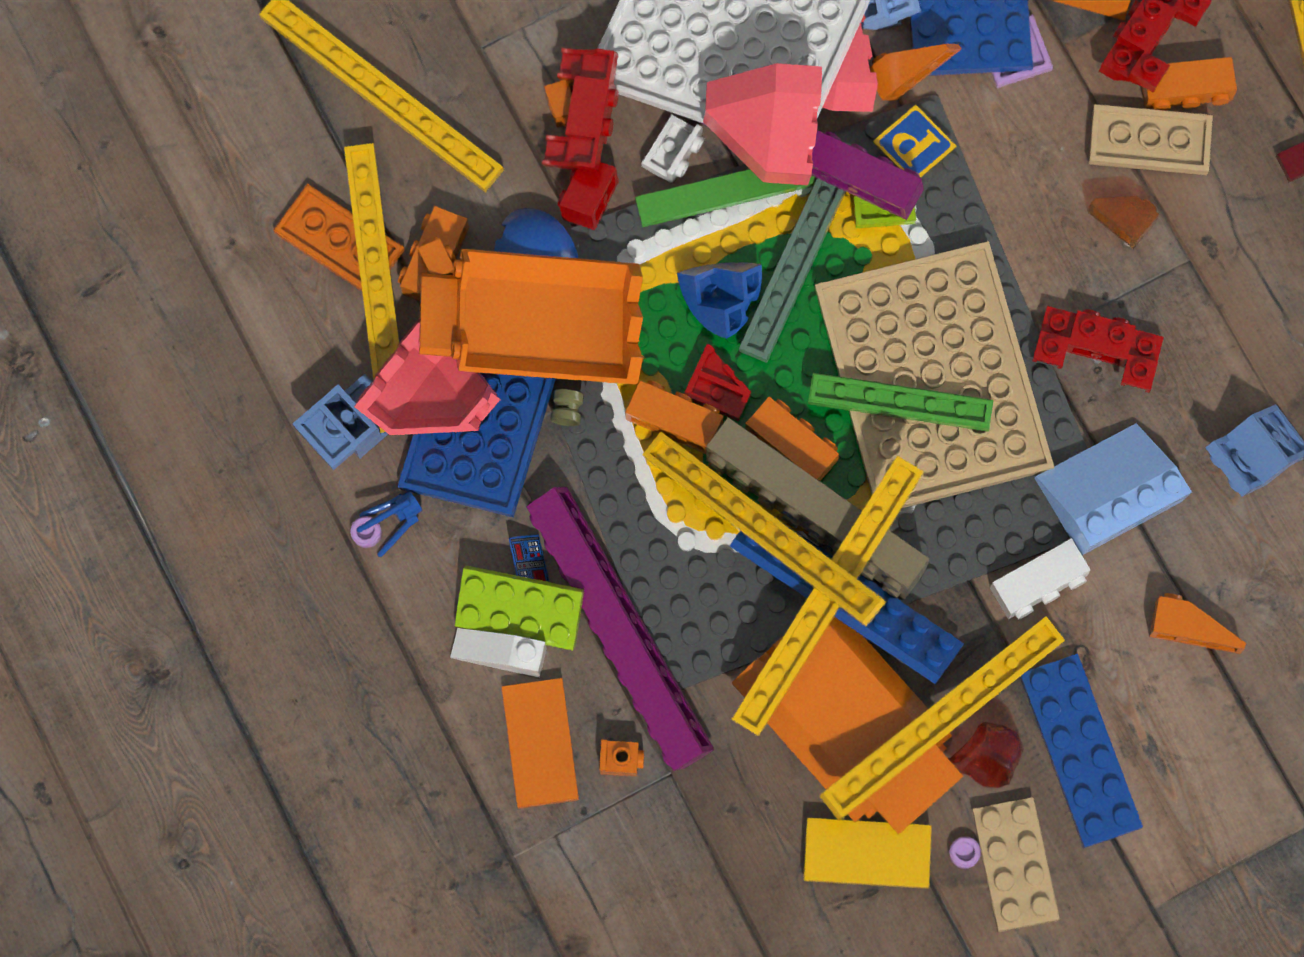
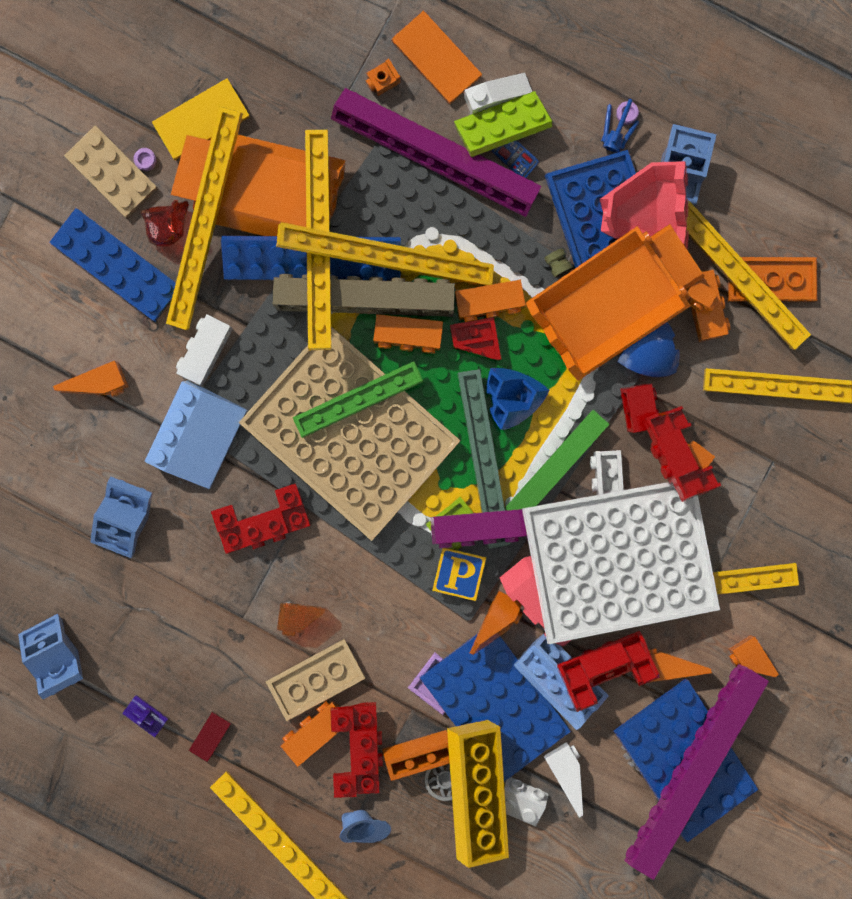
camera: 140 degrees right, 10 degrees up
(768, 119) = (556, 513): coral panel -> none

